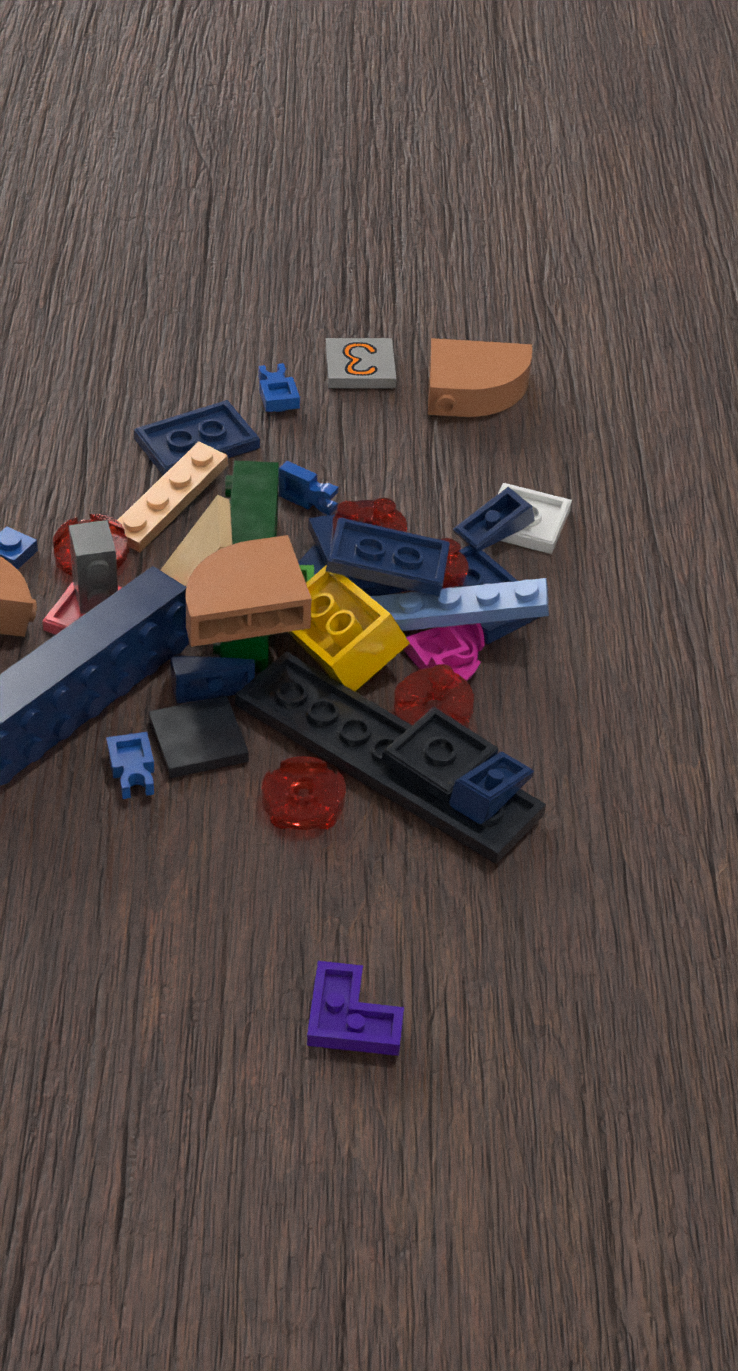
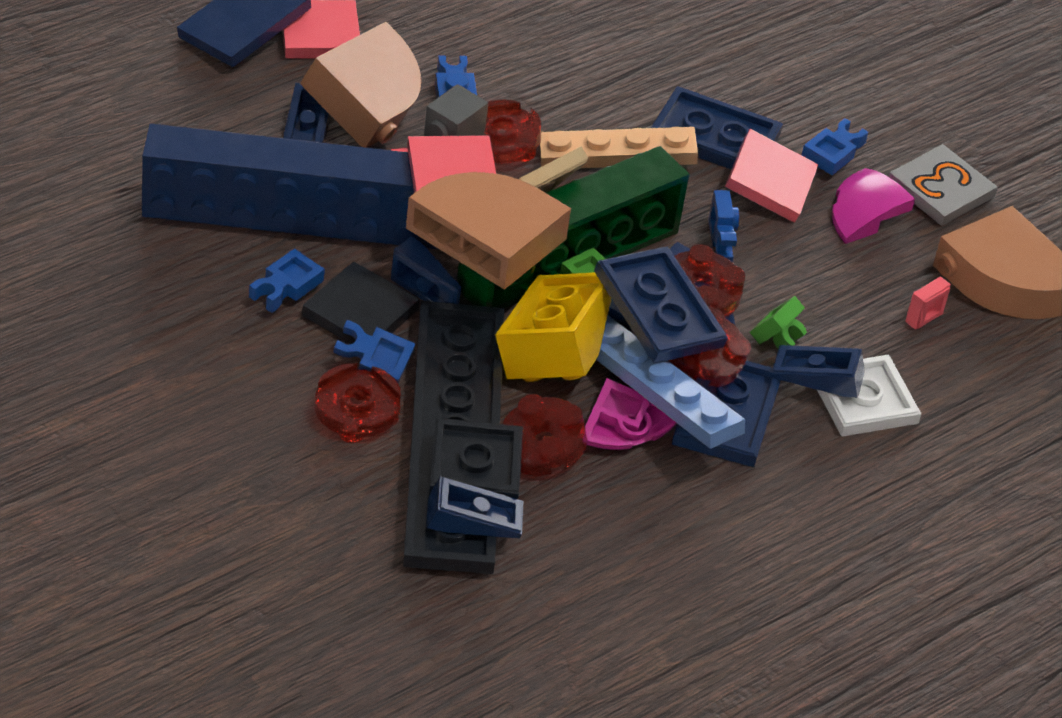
camera: 50 degrees right, 0 degrees up
(151, 582) = (447, 155): none -> coral tile
(264, 749) = (379, 350): none -> blue plate
(278, 435) = (771, 175): none -> tile
(343, 1021) = (137, 538): dark purple plate -> none
(345, 406) = (865, 201): none -> dark pink brick
(428, 516) = (781, 322): none -> bright green tile
(475, 434) = (928, 303): none -> coral tile

